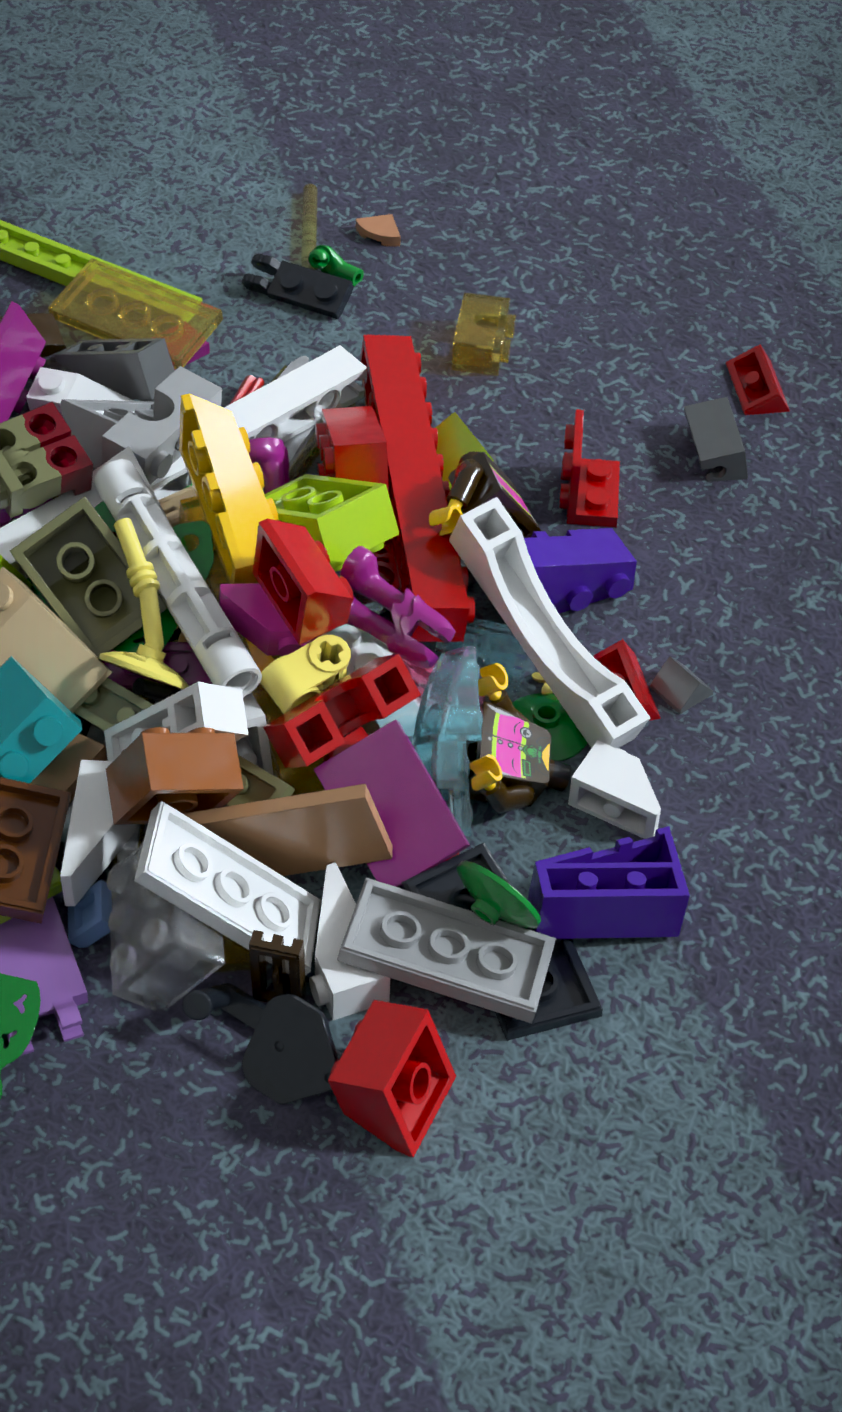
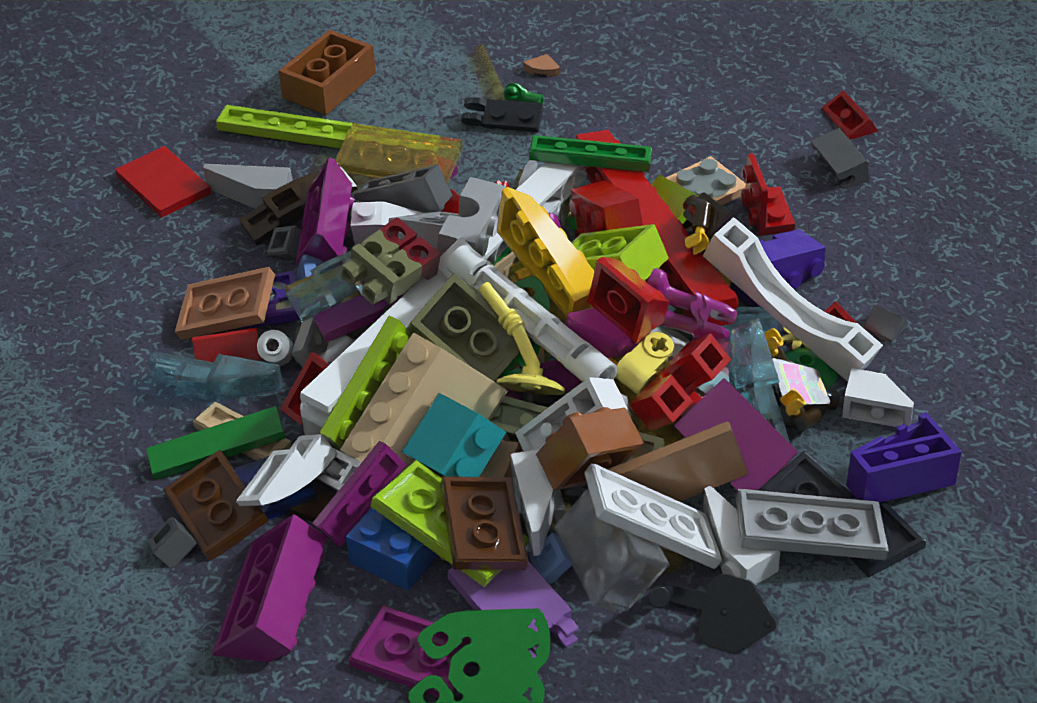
camera: 10 degrees left, 5 degrees down
(94, 182) = (327, 72): none -> dark orange brick
(279, 952) = (702, 547): dark brown tile -> none
(367, 365) = (590, 153): none -> green tile
(393, 1075) = (809, 611): red slope -> none
(482, 334) = (649, 120): clear yellow brick -> none
(496, 898) = (834, 479): green dish -> none
(522, 437) = (711, 178): none -> light grey piece

